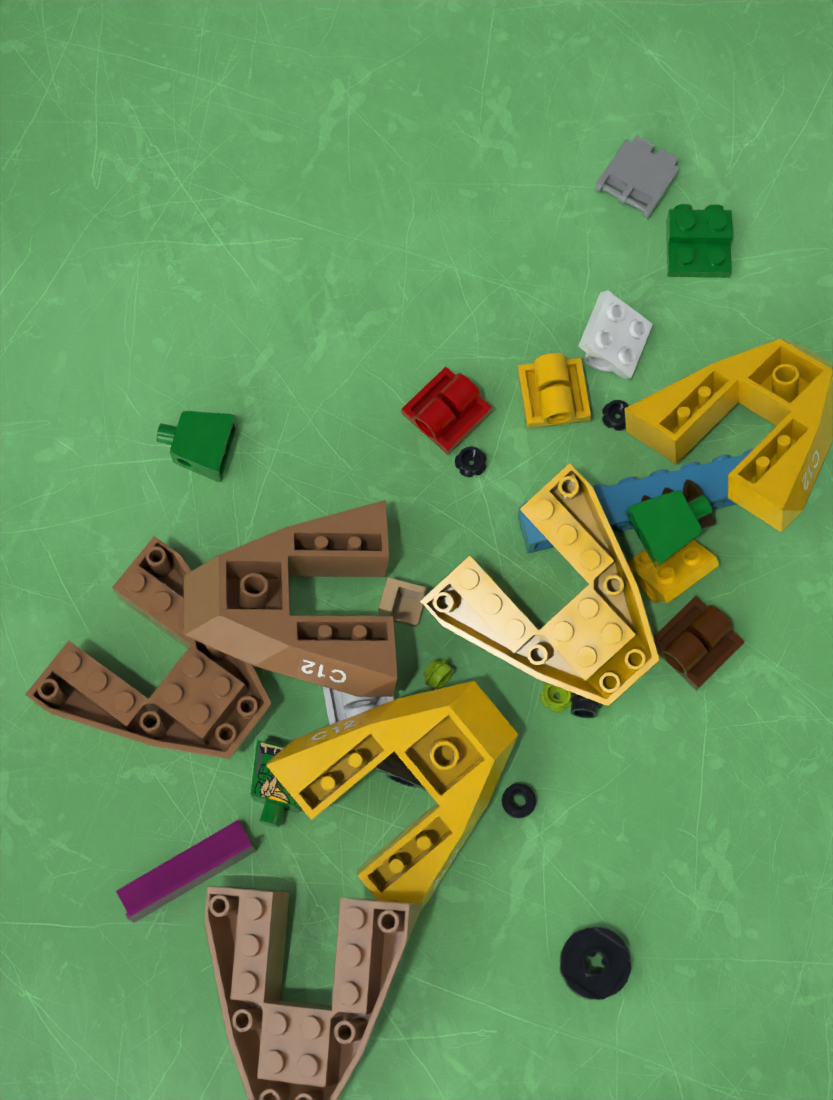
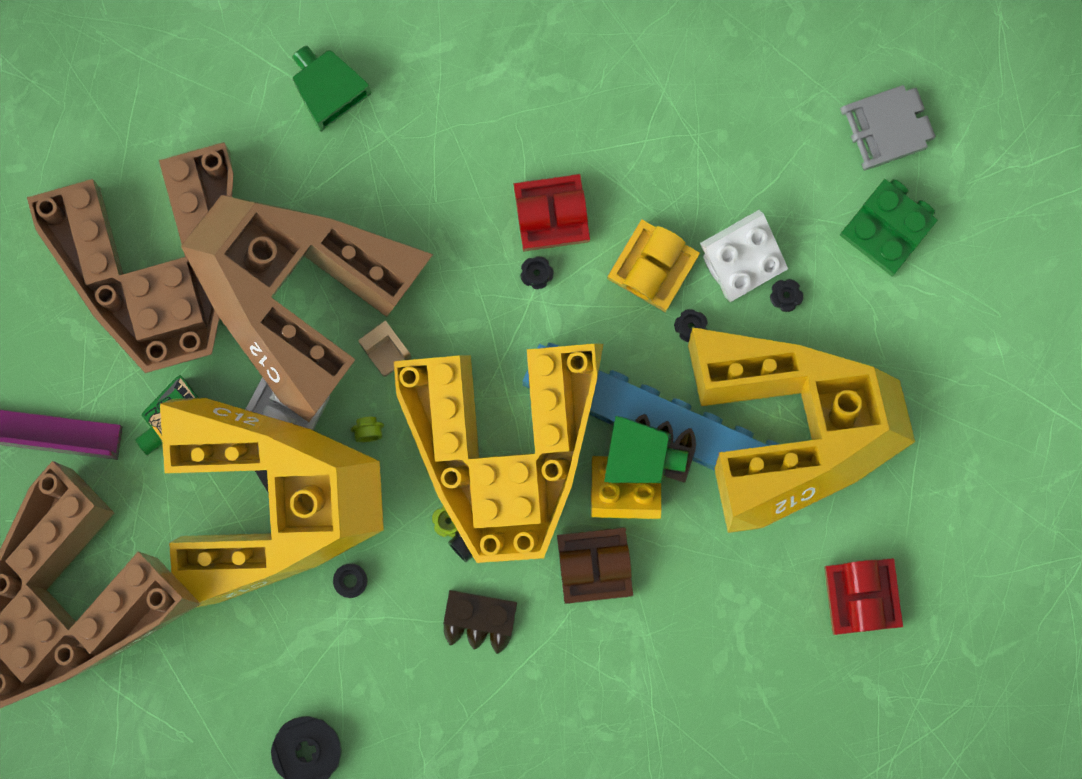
camera: 35 degrees right, 10 degrees up
(640, 751) = (479, 616): none -> dark brown plate
(667, 351) = (778, 299): none -> black plate

